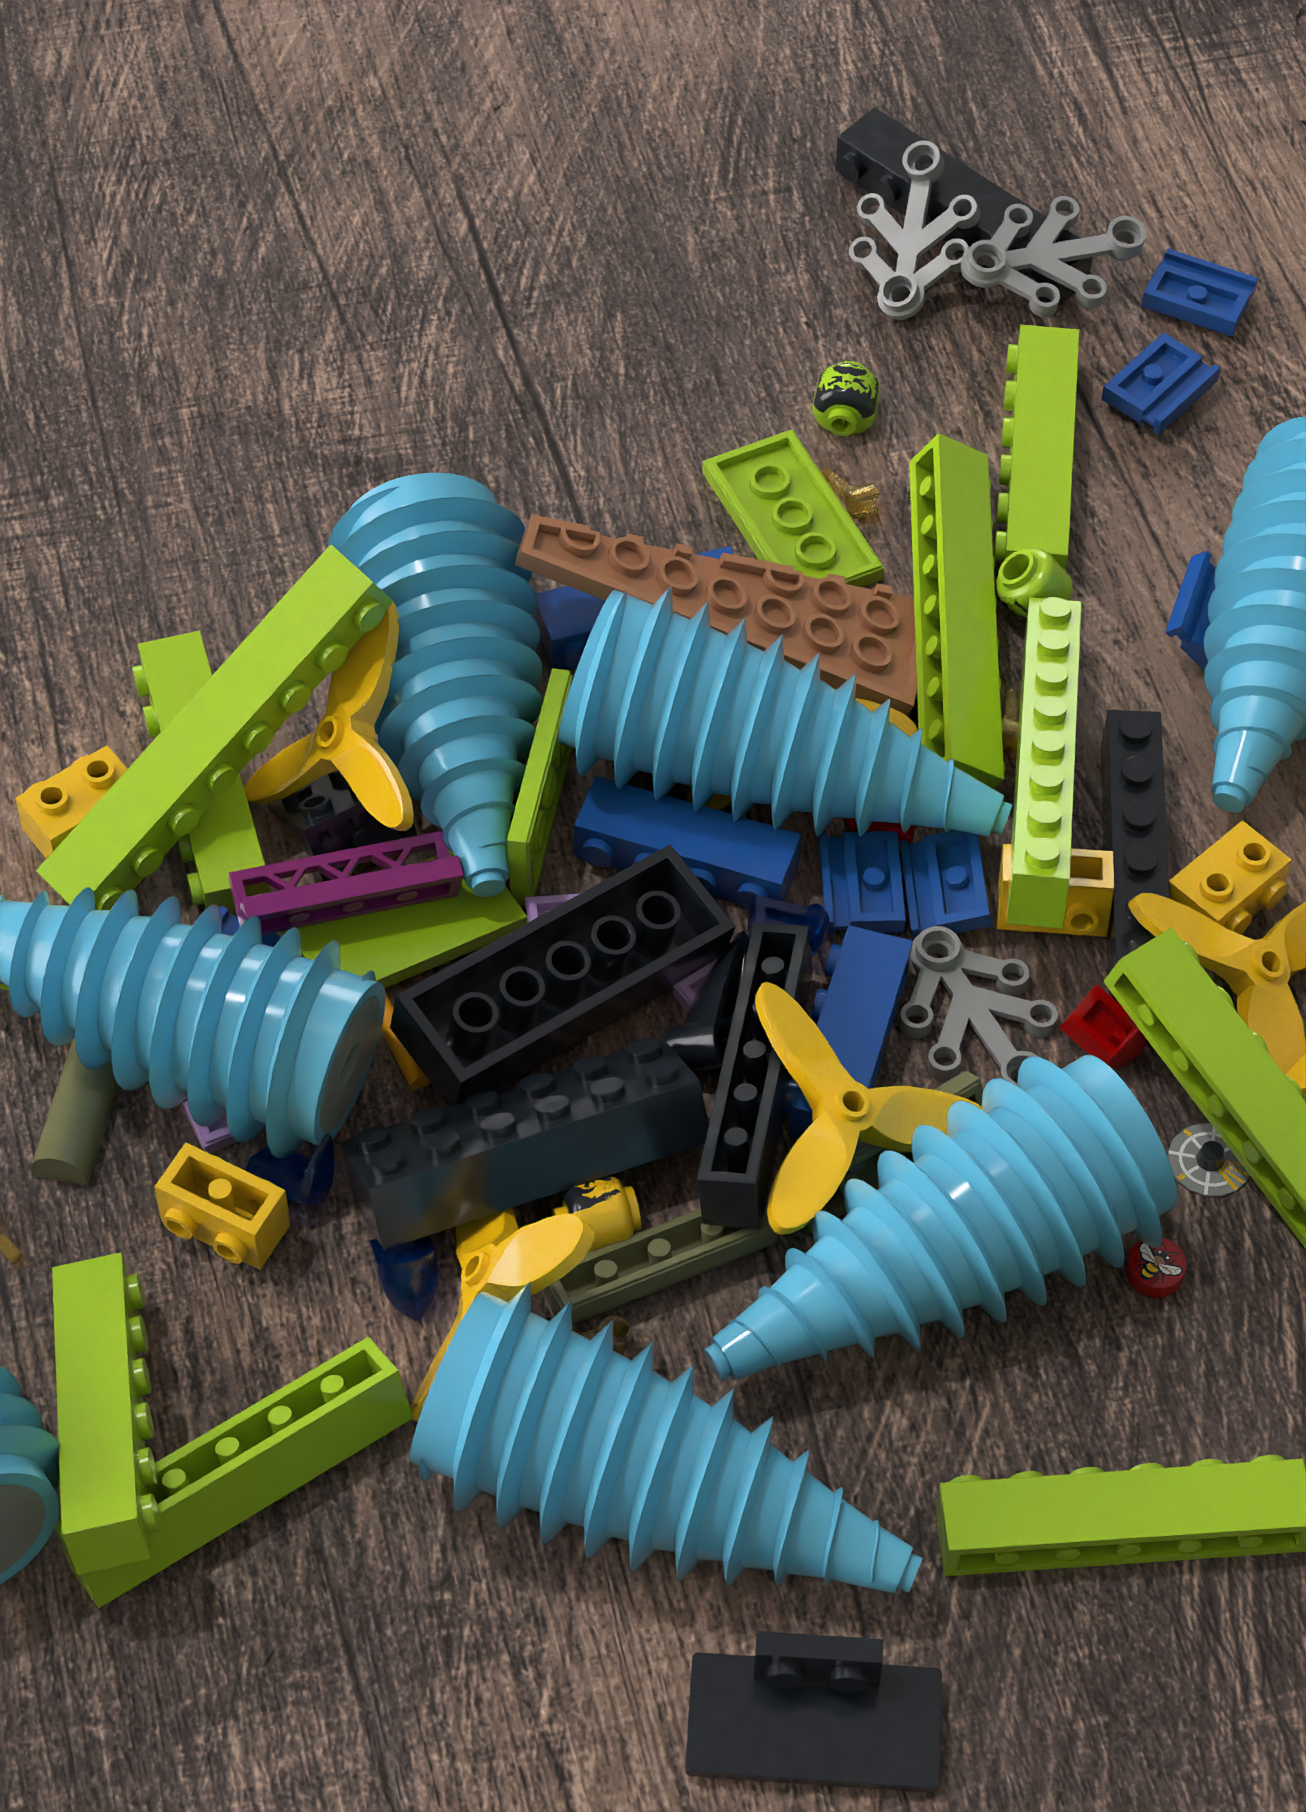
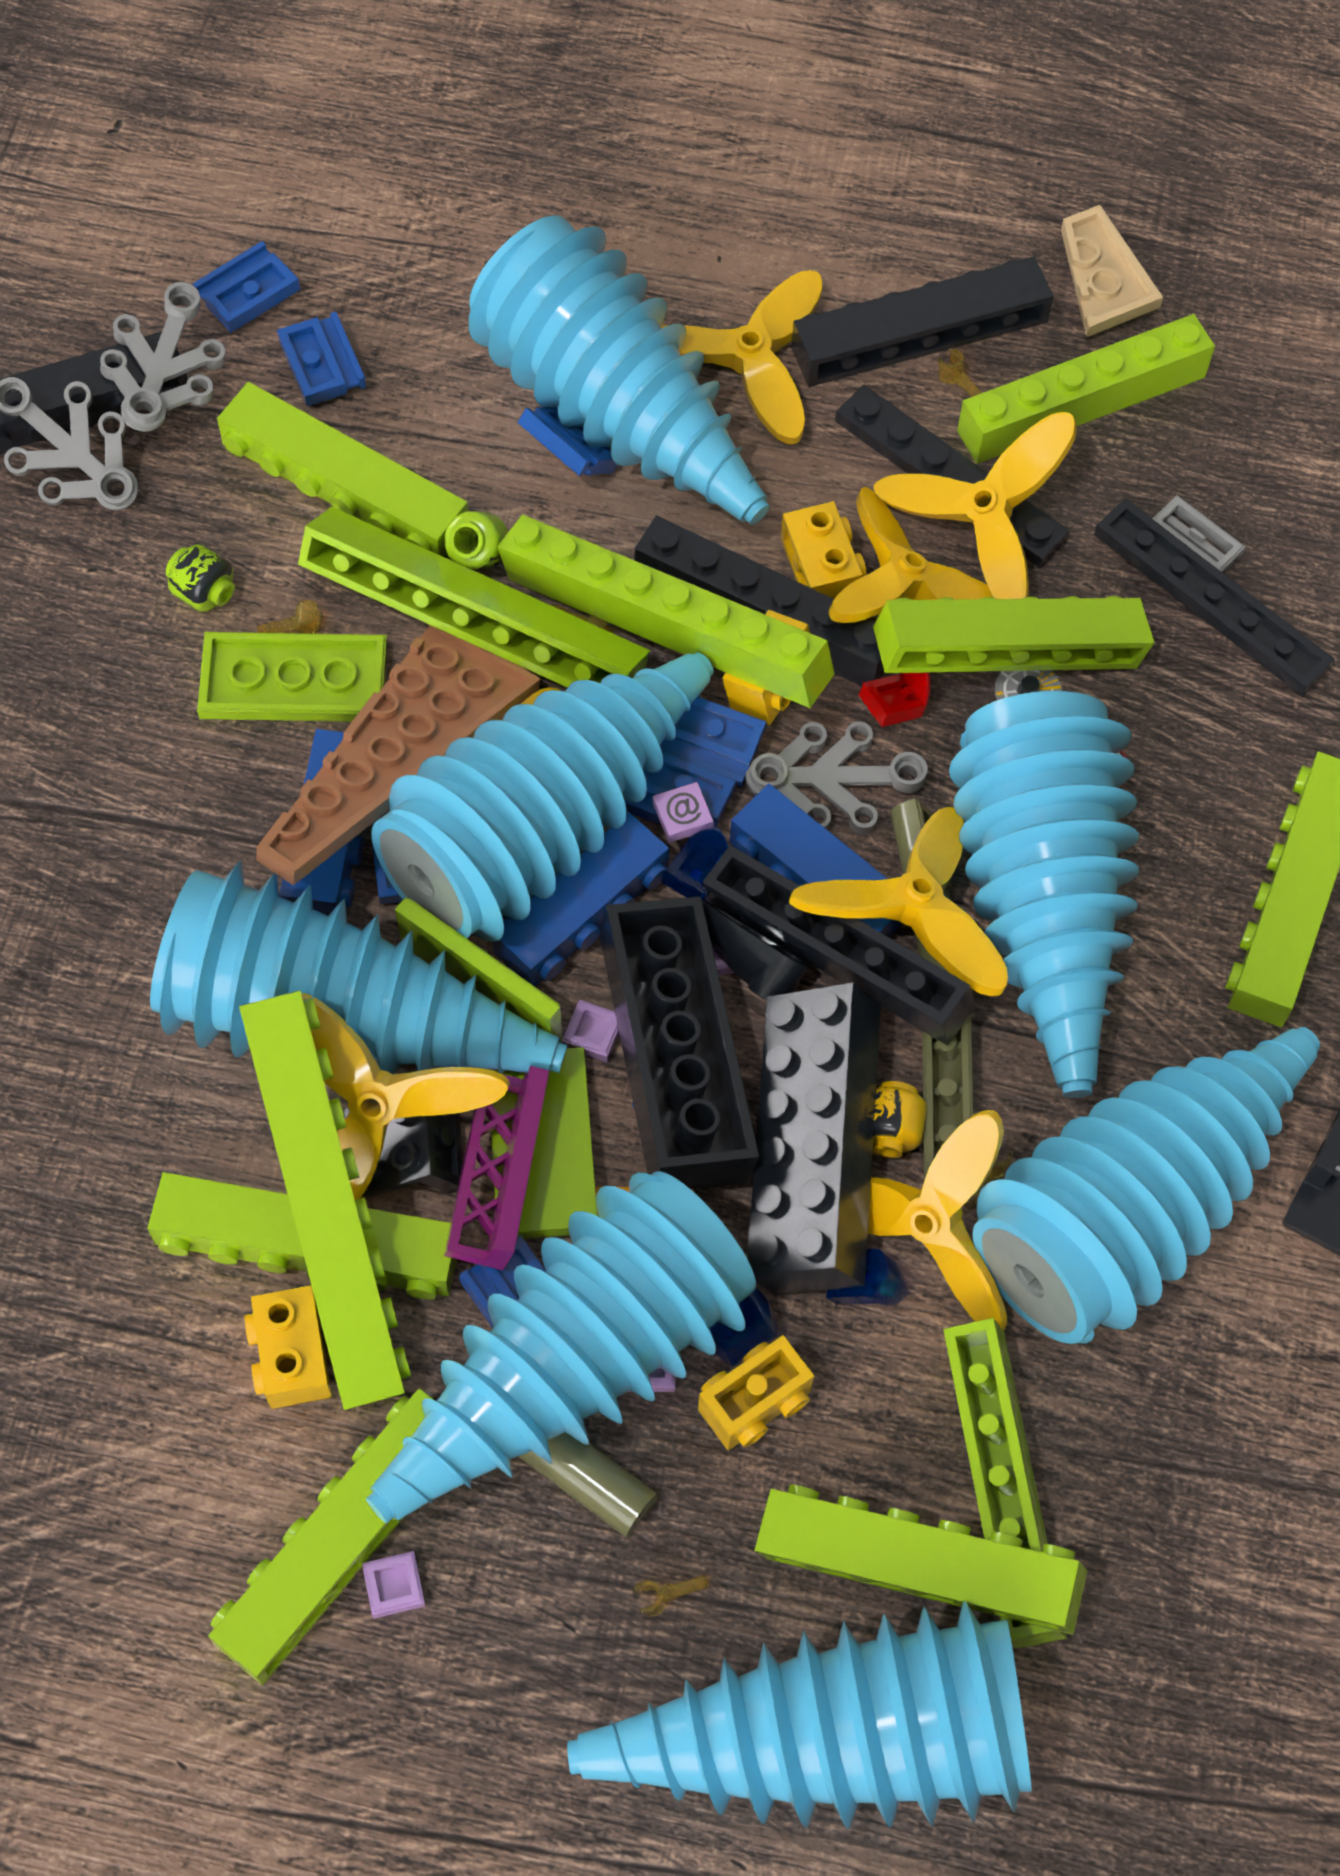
camera: 65 degrees left, 10 degrees up
(834, 883) = (682, 812): none -> lavender tile

